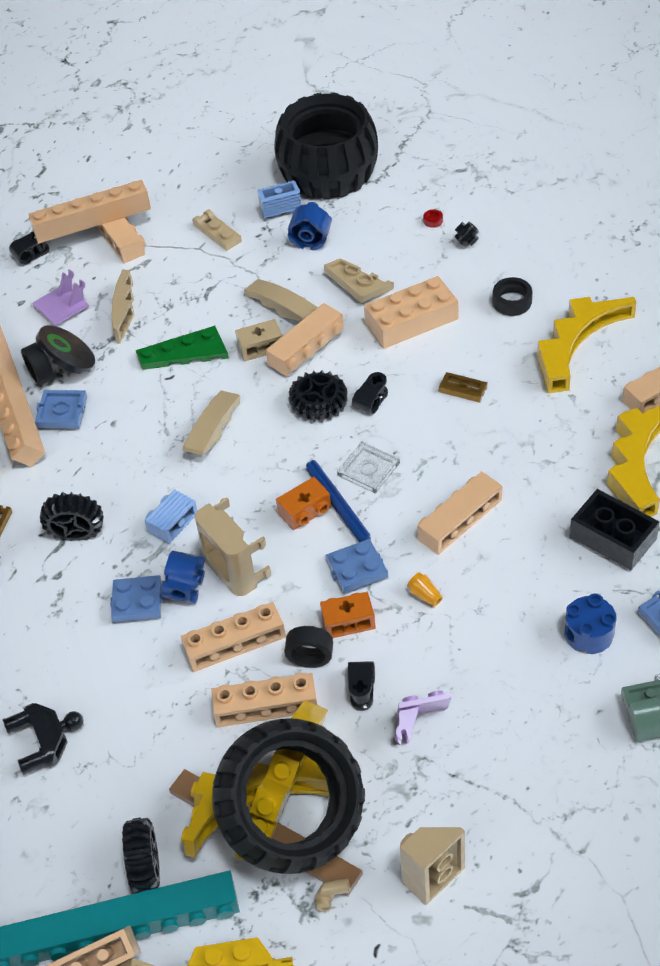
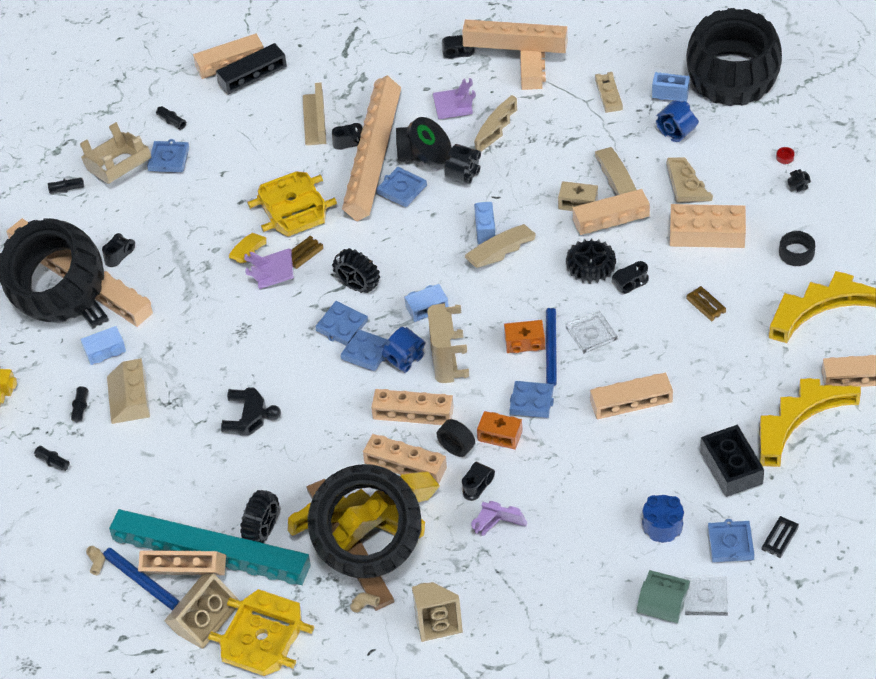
camera: 30 degrees right, 0 degrees up
(88, 582) = (341, 323): none -> medium blue plate
(116, 357) = (462, 164): none -> black brick
(179, 406) = (484, 221): none -> light blue brick
(193, 346) = (531, 181): green wing -> none
(424, 589) = (566, 438): light orange cone -> none

